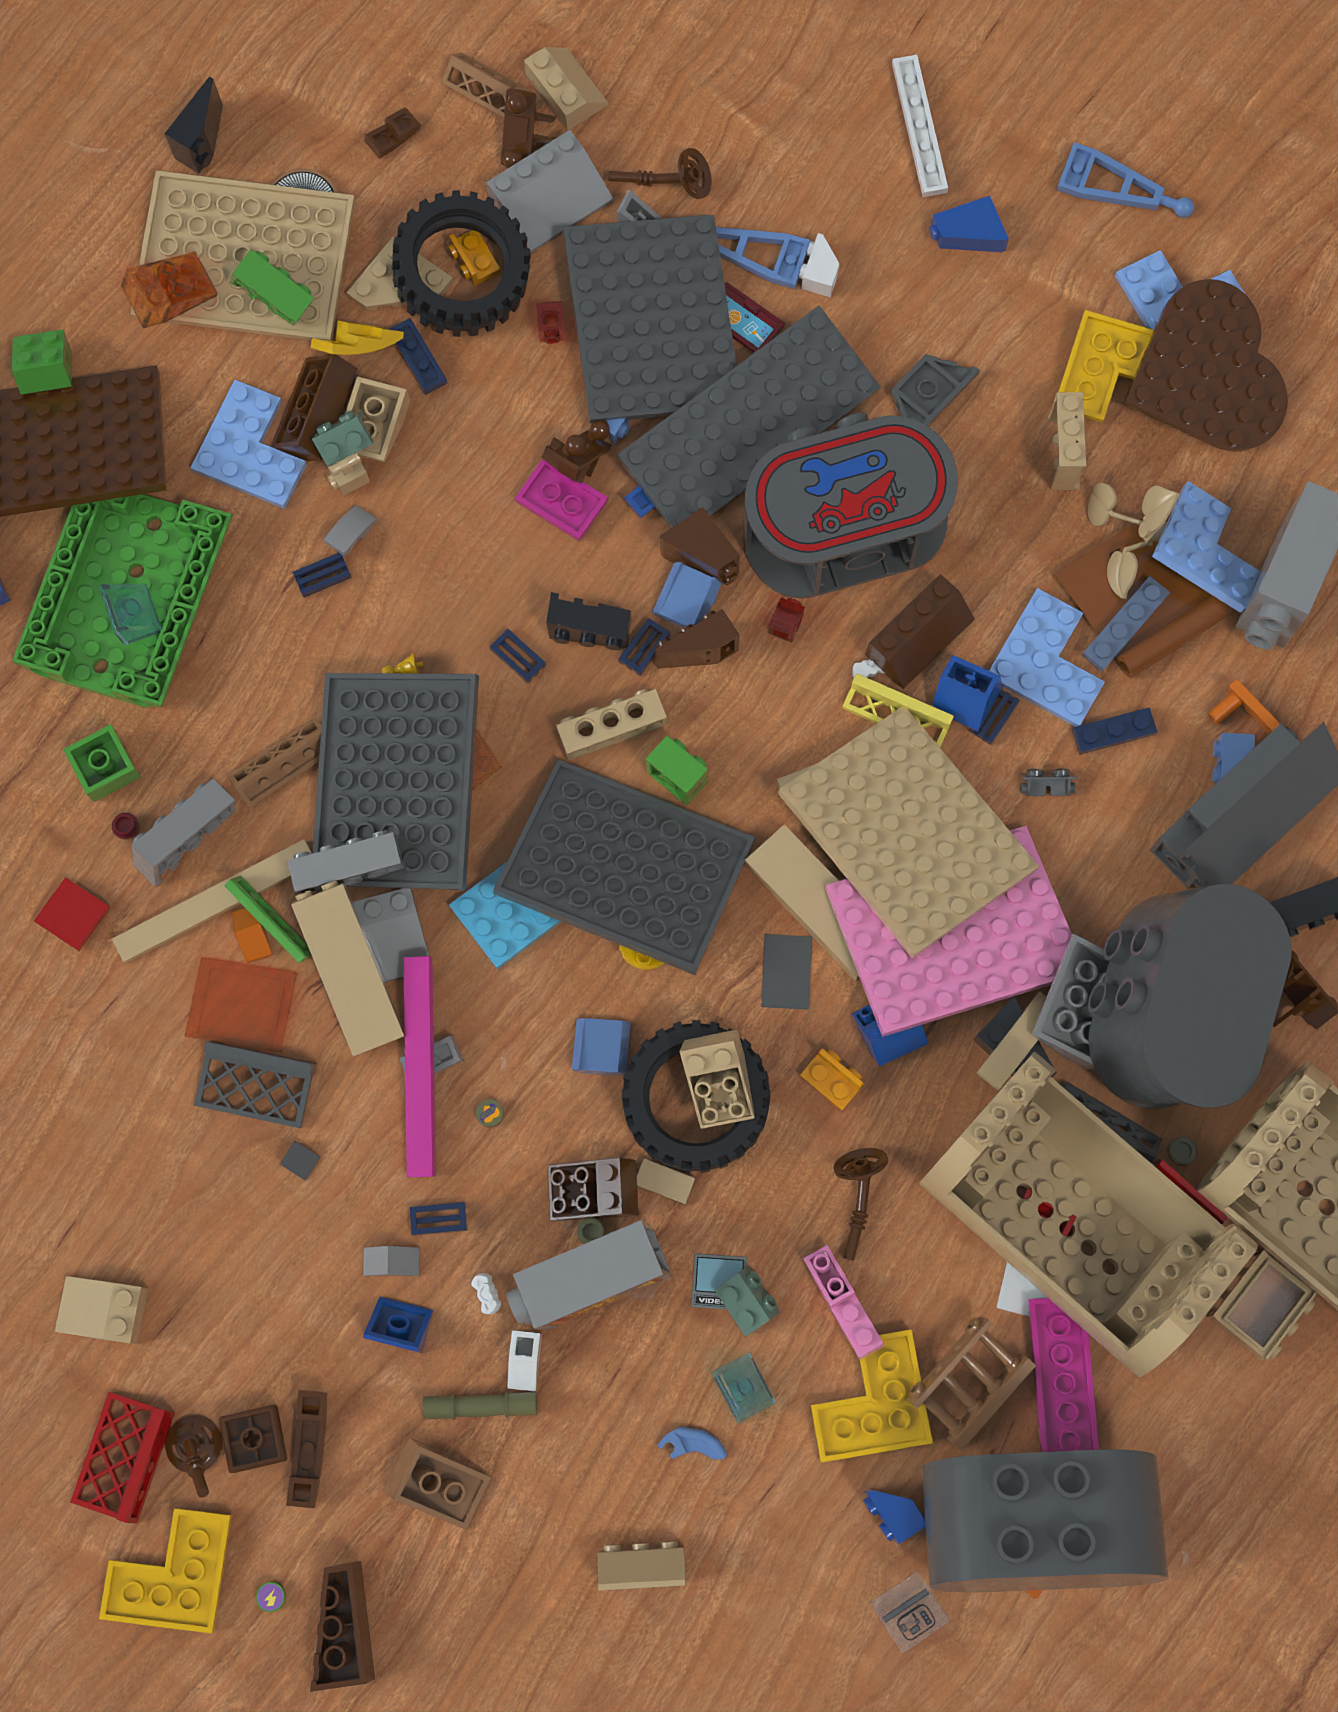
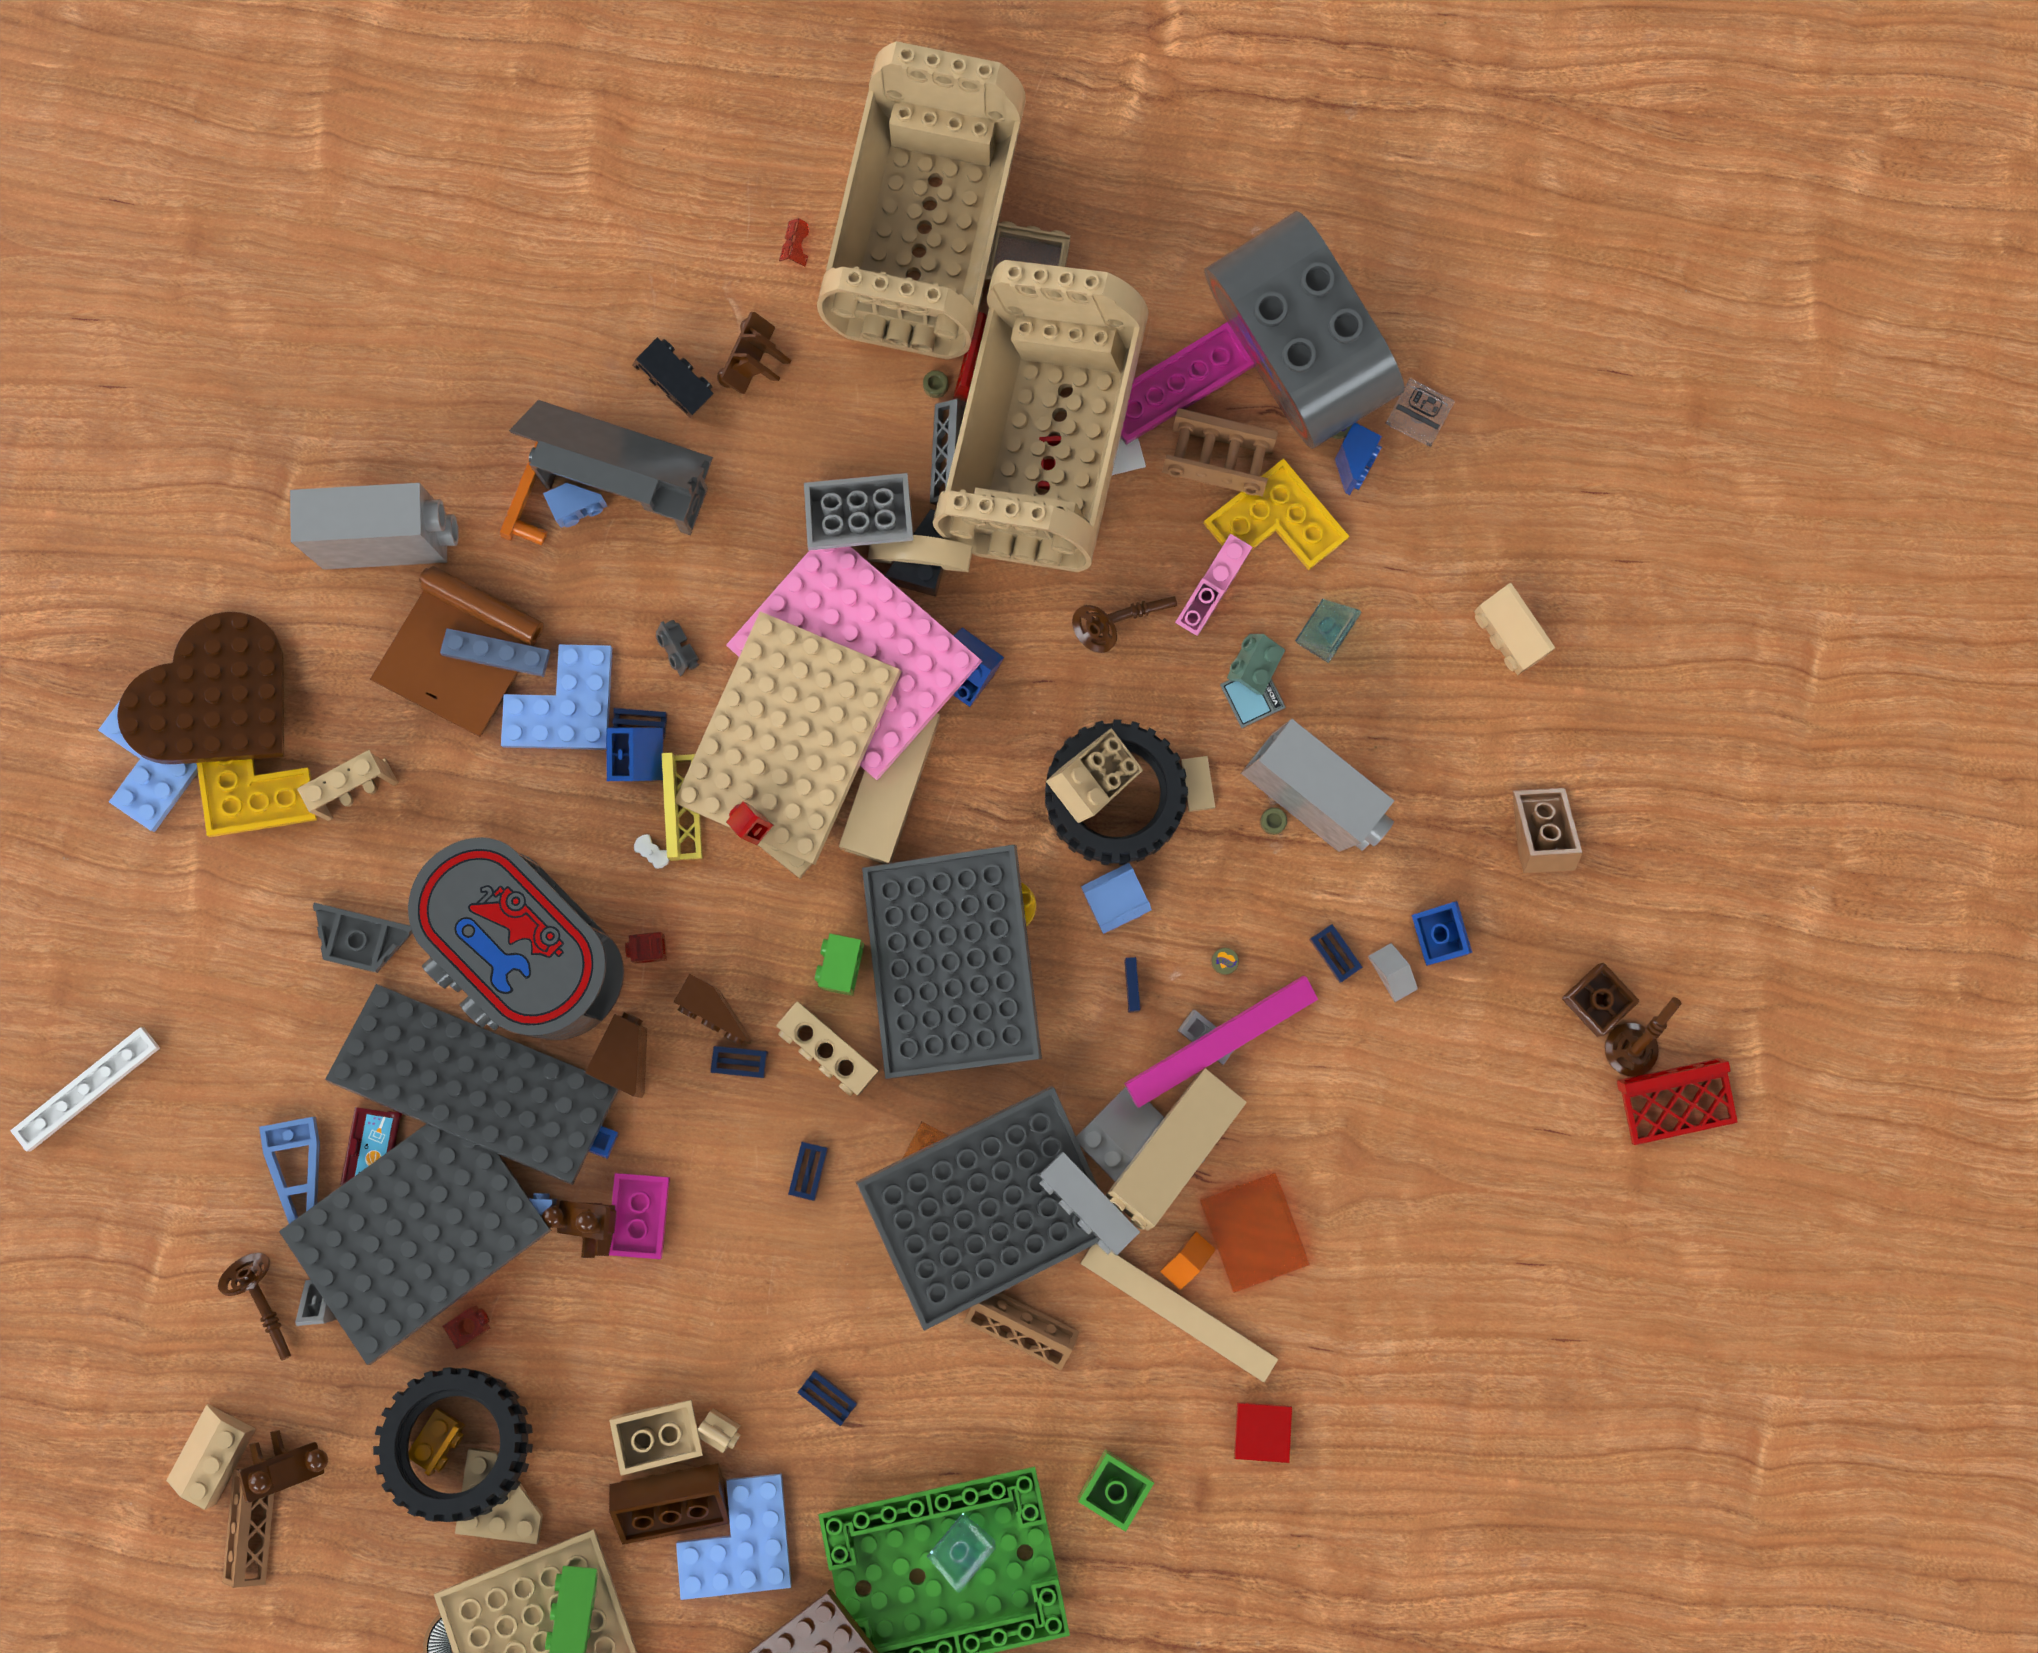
camera: 125 degrees left, 5 degrees up
(101, 1310) = (1575, 1192): tan slope -> none
(125, 826) = (1157, 1435): dark red plate -> none
(181, 830) = (1134, 1377): light grey wedge -> none
(181, 1592) = (1747, 986): yellow plate -> none
(259, 1060) = (1293, 1185): dark grey fence -> none
(269, 918) = (1169, 1249): bright green tile -> none
(271, 1596) = (1708, 913): medium lavender tile -> none
(300, 1160) = (1356, 1098): dark grey slope -> none
(308, 1449) = (1582, 950): reddish brown slope -> none
(342, 438) = (690, 1451): sand green bracket -> none
(343, 1632) = (1703, 835): reddish brown wedge -> none
(349, 530) = (771, 1396): light grey slope -> none
(357, 339) = (582, 1502): yellow slope -> none
(395, 132) = (344, 1600): reddish brown slope -> none
(407, 666) = (872, 1264): yellow piece -> none
(419, 357) = (566, 1435): dark blue plate -> none
(479, 1405) = (1464, 831): olive piece -> none
(486, 1293) = (1373, 877): white piece -> none
(497, 923) = (1063, 1049): medium azure plate -> none
(515, 1016) = (1132, 984): none -> dark blue tile
(524, 1360) = (1410, 814): white slope -> none
(550, 190) = (330, 1406): light grey slope -> none
(588, 624) = (746, 1120): black wedge -> none
(593, 1189) = (1239, 837): reddish brown slope -> none
(686, 596) = (673, 1048): medium blue slope -> none
(692, 1440) = (1390, 649): medium blue piece -> none
(786, 971) = (963, 780): dark grey sticker -> none
(822, 268) = (282, 1100): white slope -> none
(832, 1079) = (1035, 693): light orange bracket -> none
(844, 750) = (748, 823): none -> red slope
(920, 632) = (597, 823): reddish brown slope -> none
(970, 227) = (171, 985): blue slope -> none
(1078, 170) = (65, 916): medium blue plate -> none
(1114, 731) = (599, 615): dark blue plate -> none
(1156, 508) = (379, 665): tan plant -> none
(1189, 997) = (813, 425): dark grey brick -> none
(1192, 548) = (399, 624): light blue plate -> none

